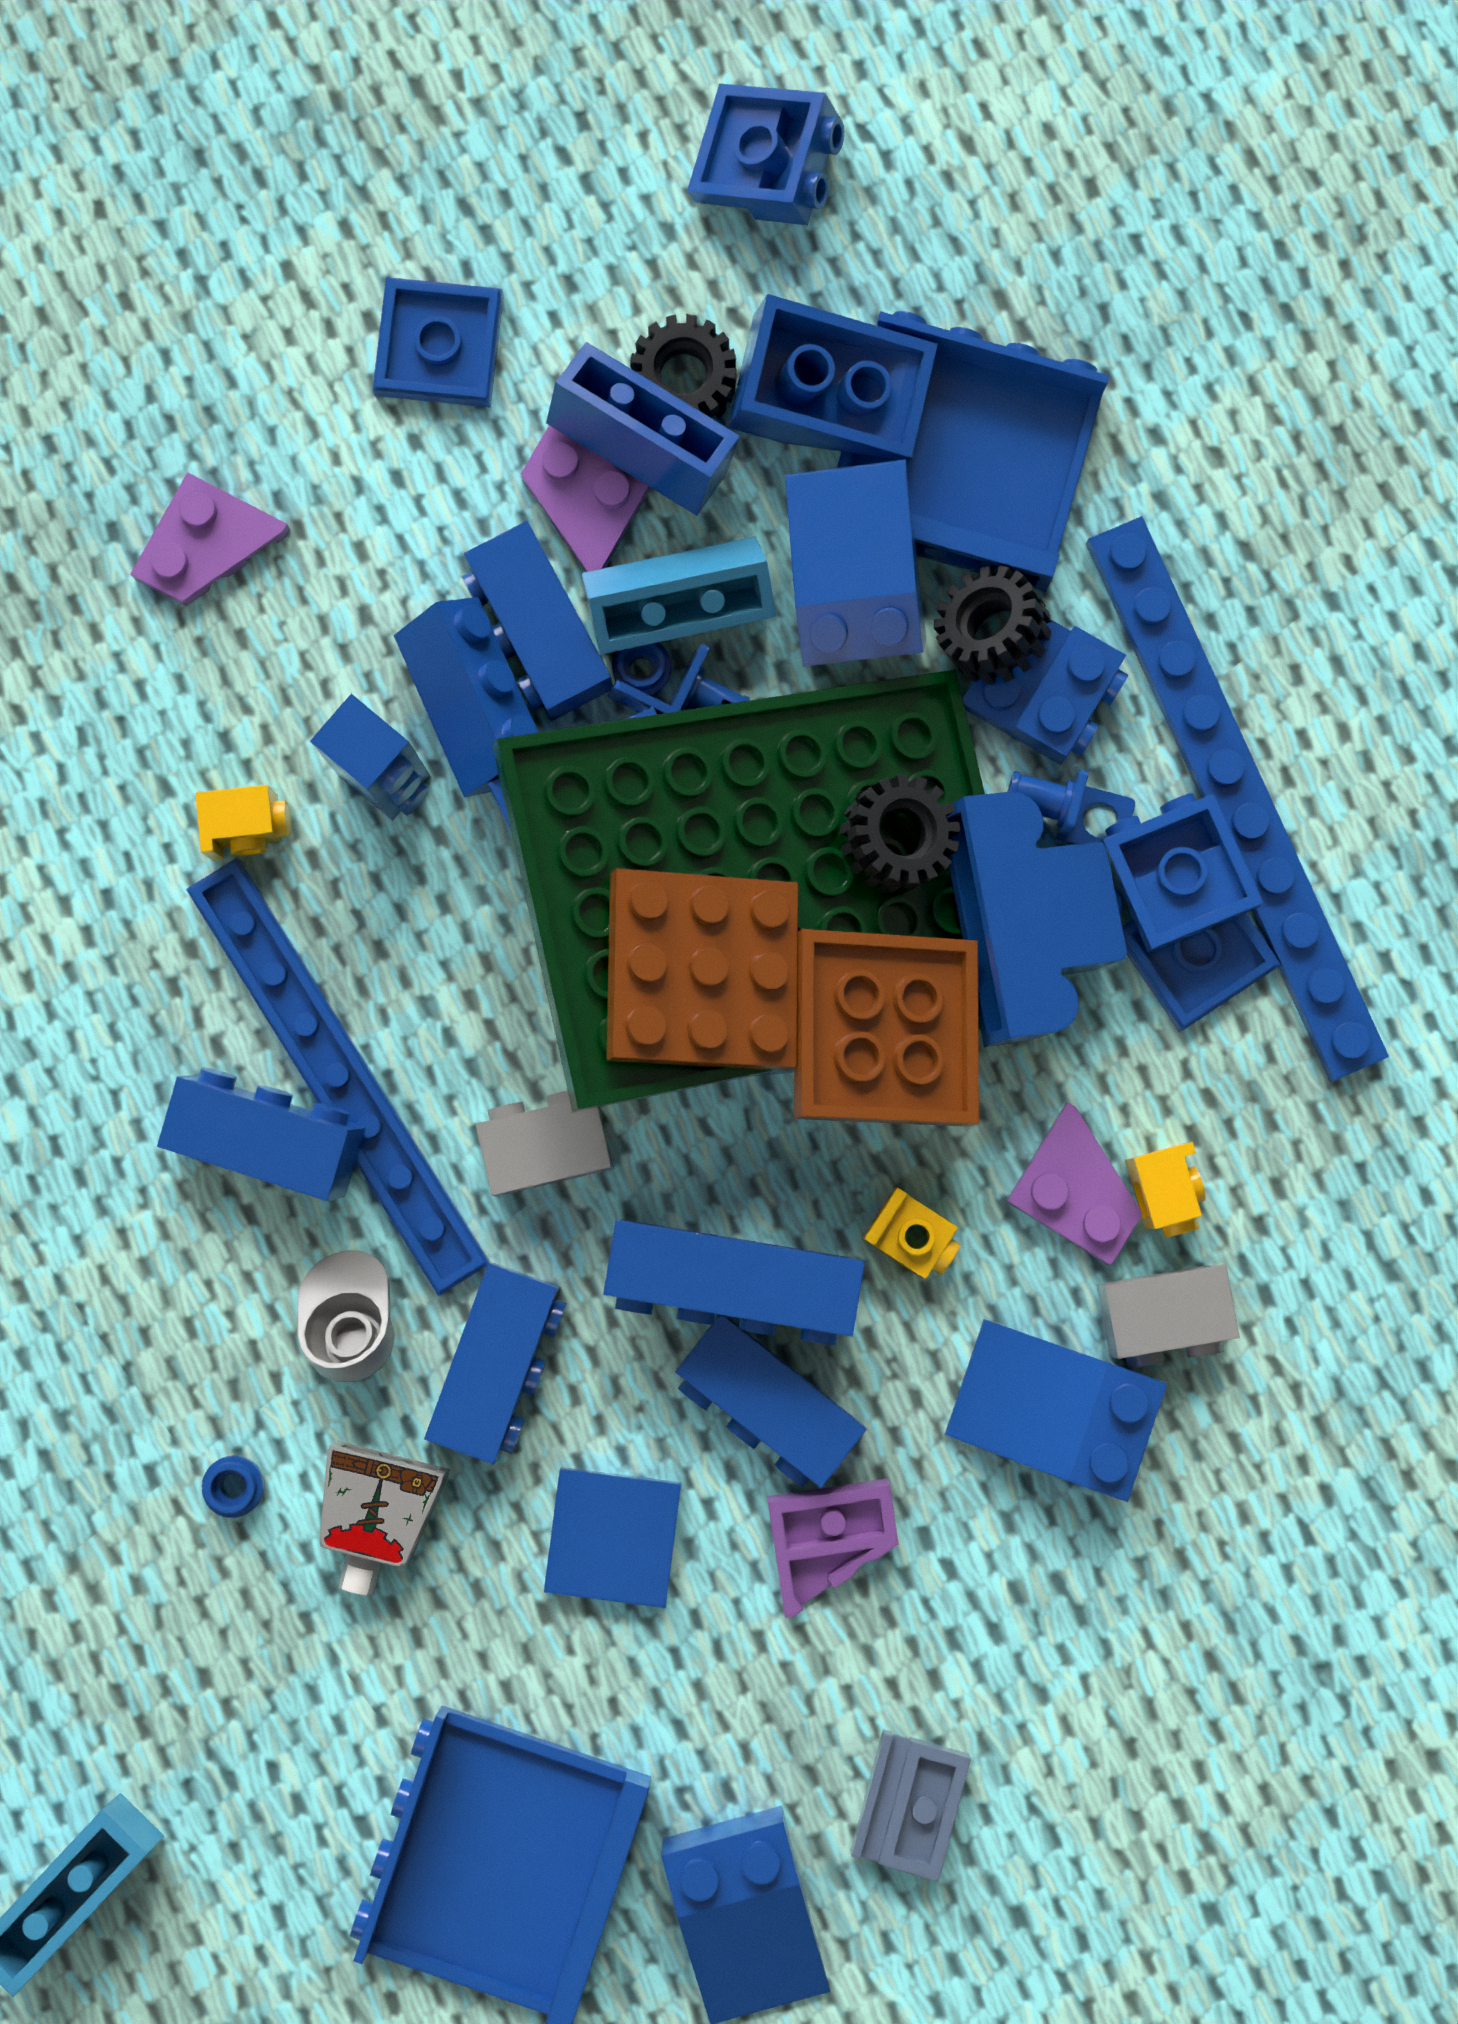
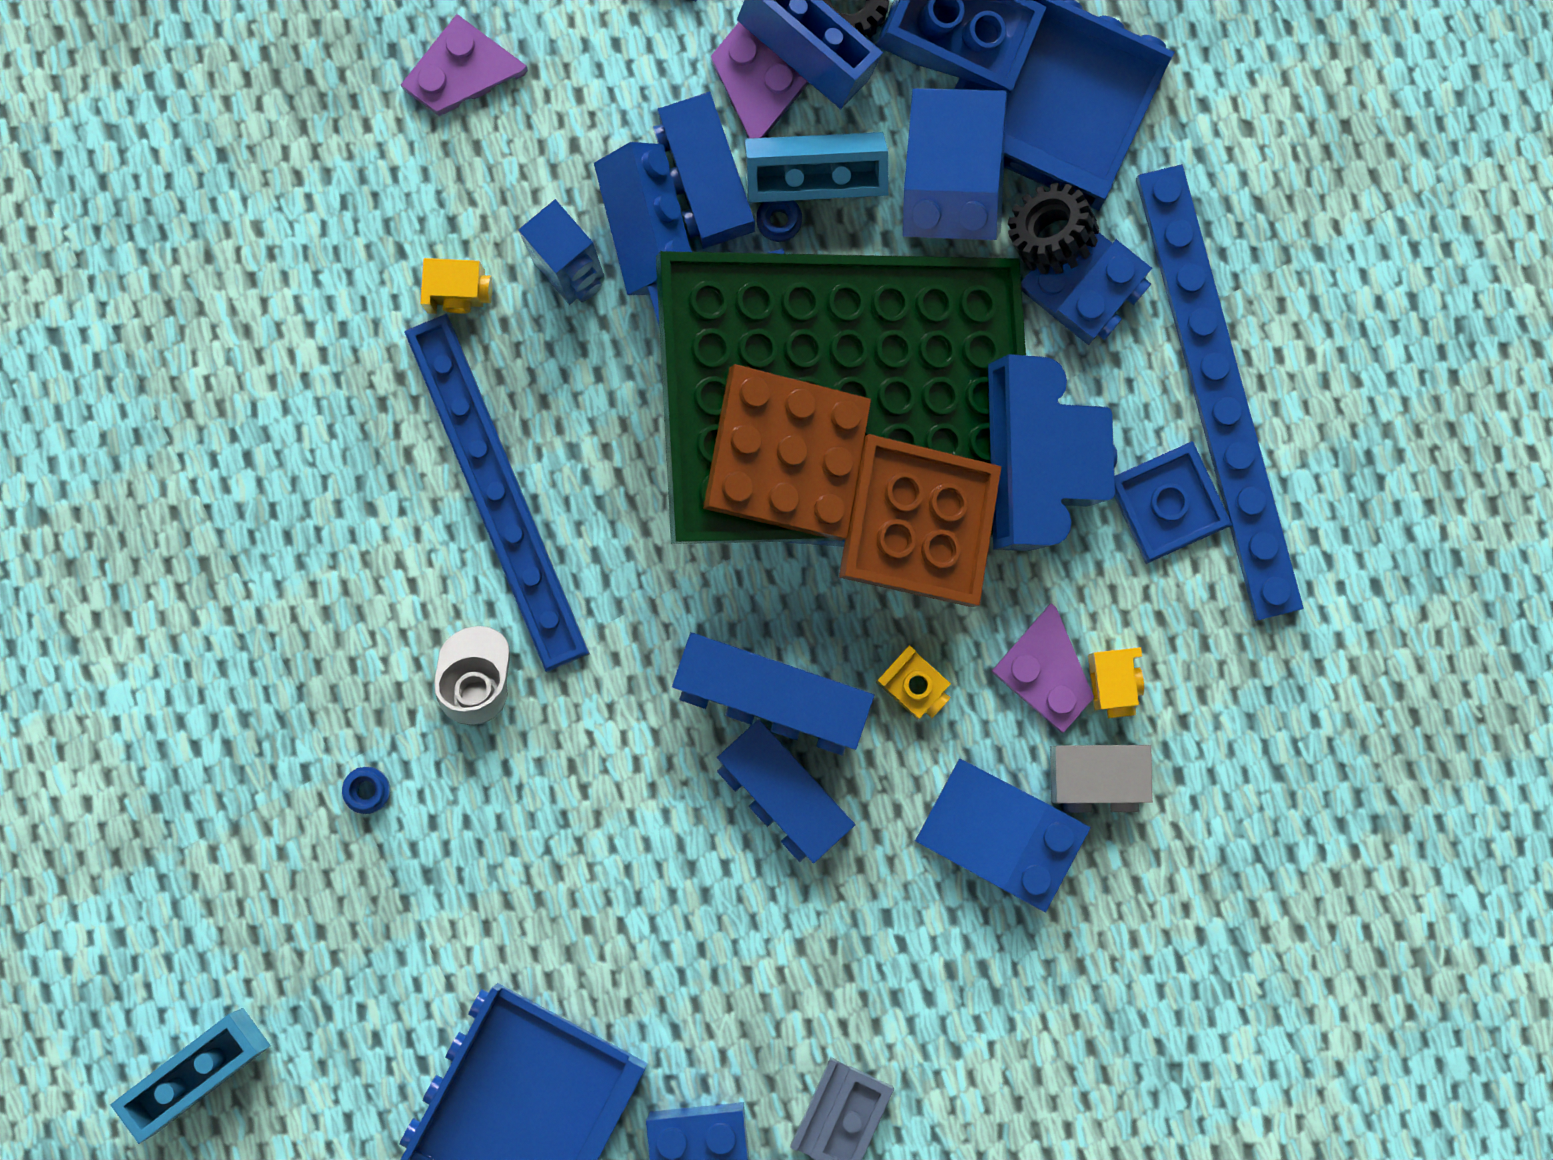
camera: 10 degrees right, 0 degrees up
(262, 1134) = (432, 526): blue brick -> none
(375, 1510) = (471, 825): torso -> none
(495, 1364) = (581, 729): blue brick -> none
(541, 1145) = (644, 569): light grey brick -> none
(612, 1537) = (648, 876): blue tile -> none
(692, 691) = (814, 242): blue bracket -> none
(828, 1535) = (813, 902): medium lavender wing -> none
(927, 815) = (978, 364): black tyre -> none
(1069, 803) = (1090, 374): blue bracket -> none
(1180, 871) = (1165, 439): blue plate -> none

